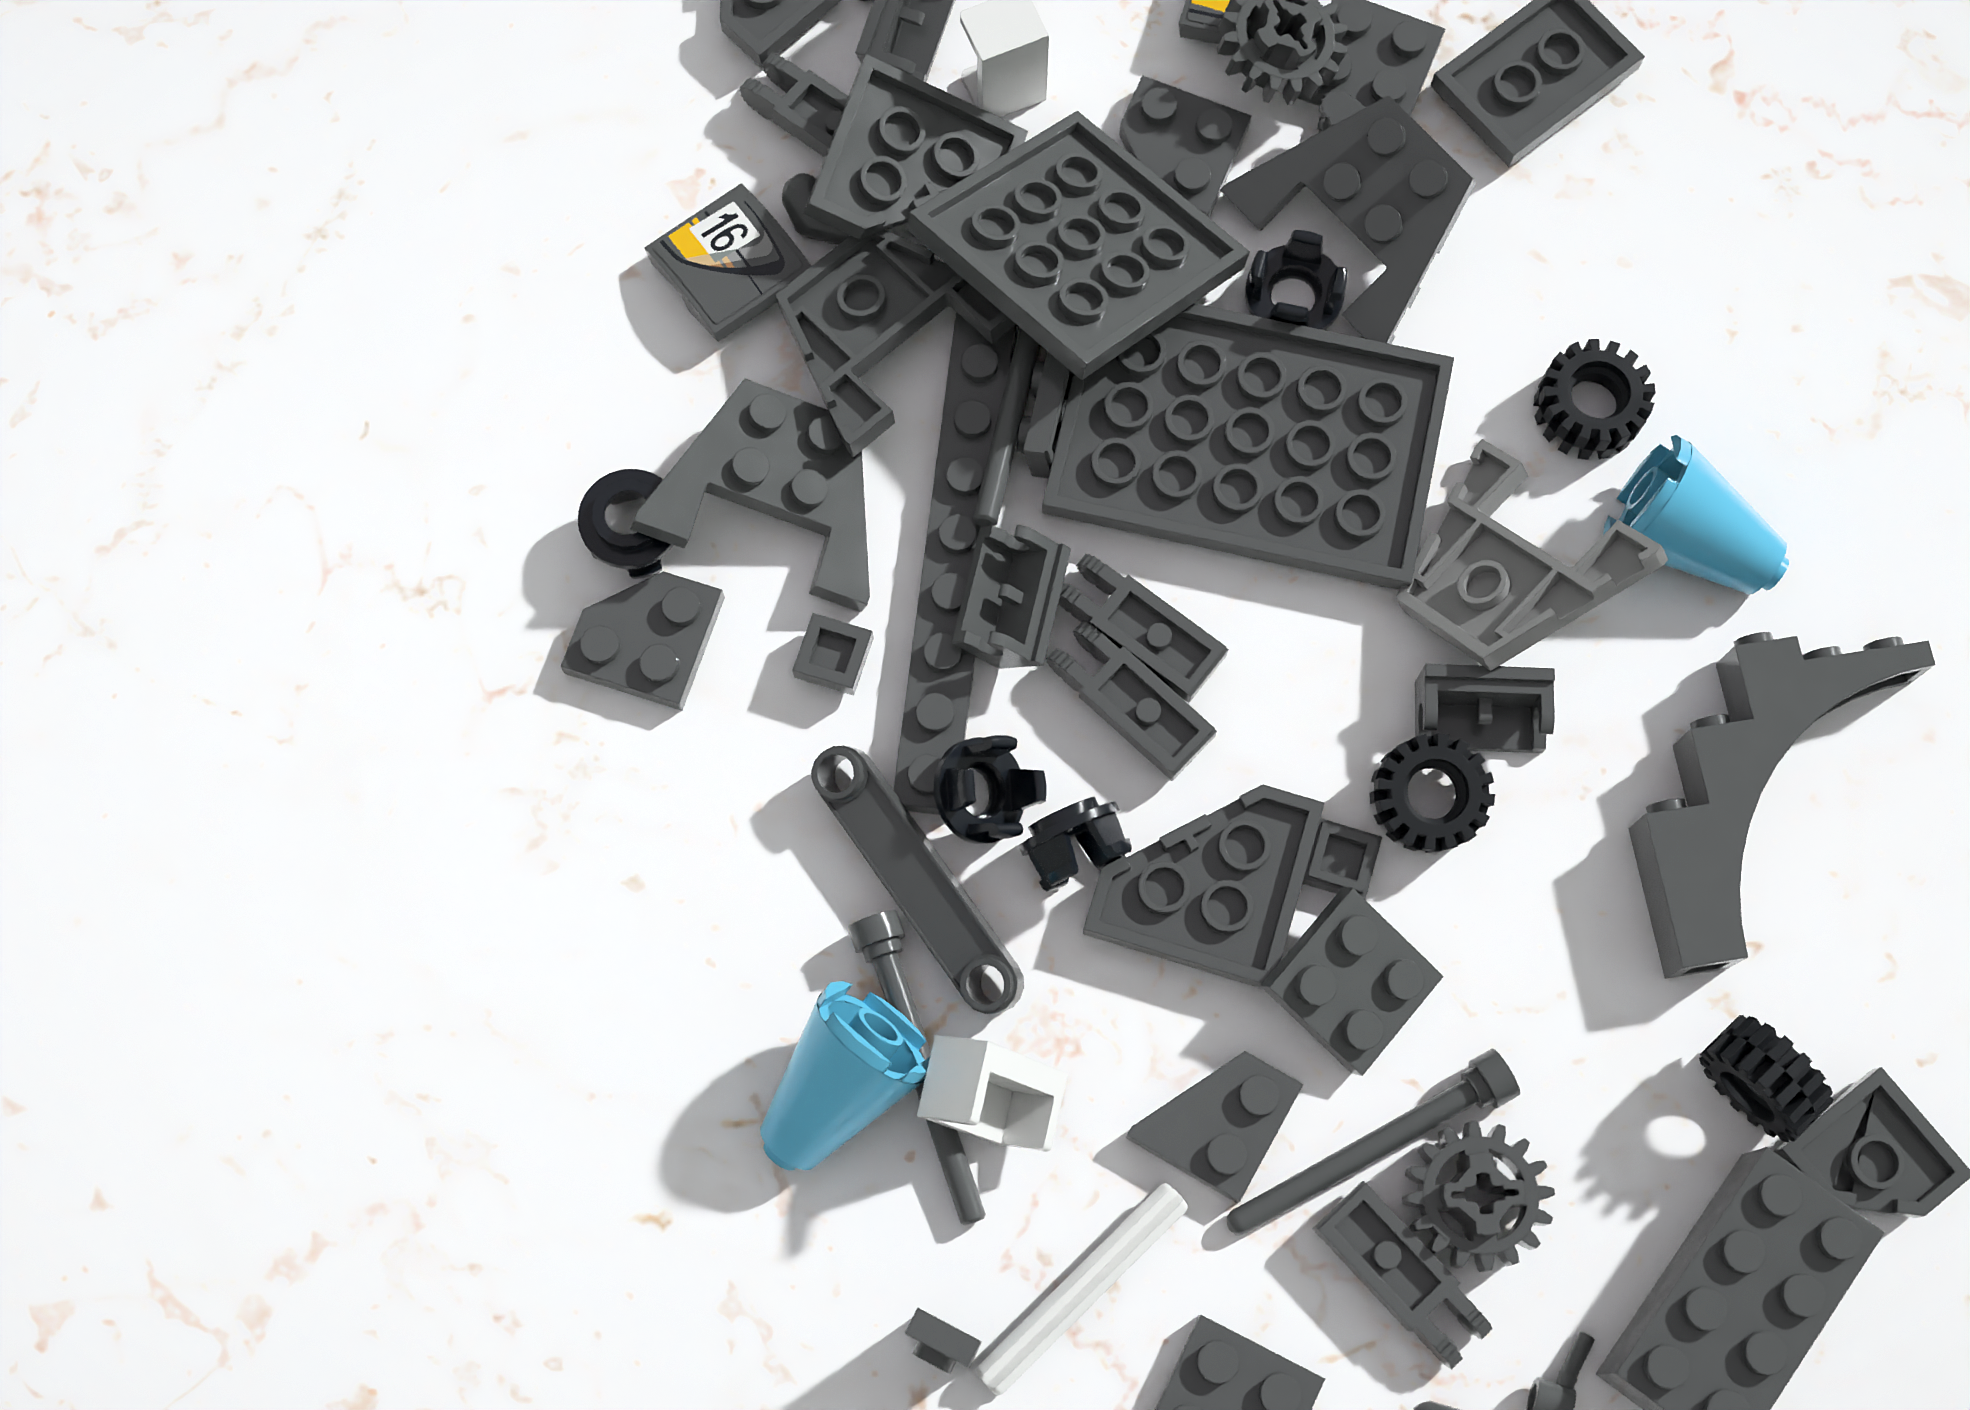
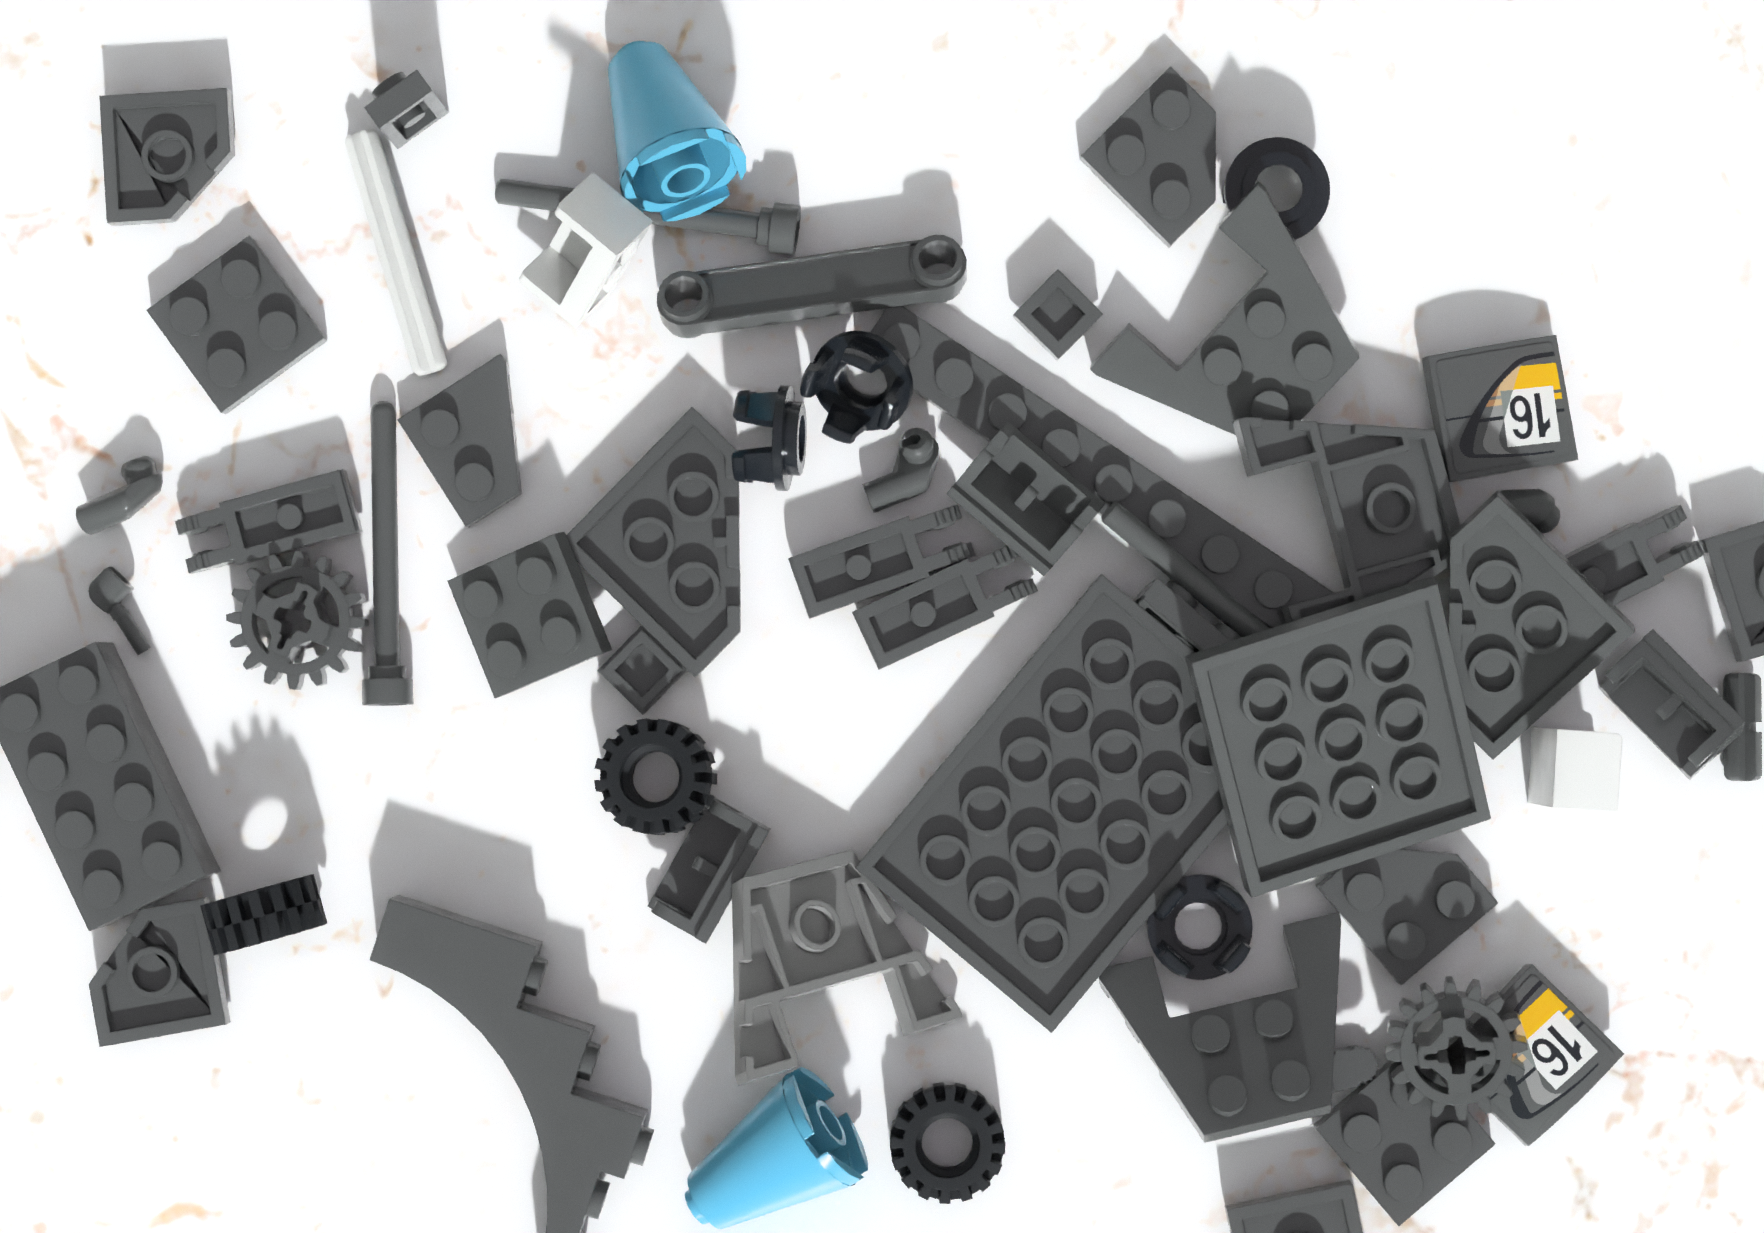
camera: 115 degrees right, 15 degrees up
(1040, 713) = (910, 474): none -> dark grey arm

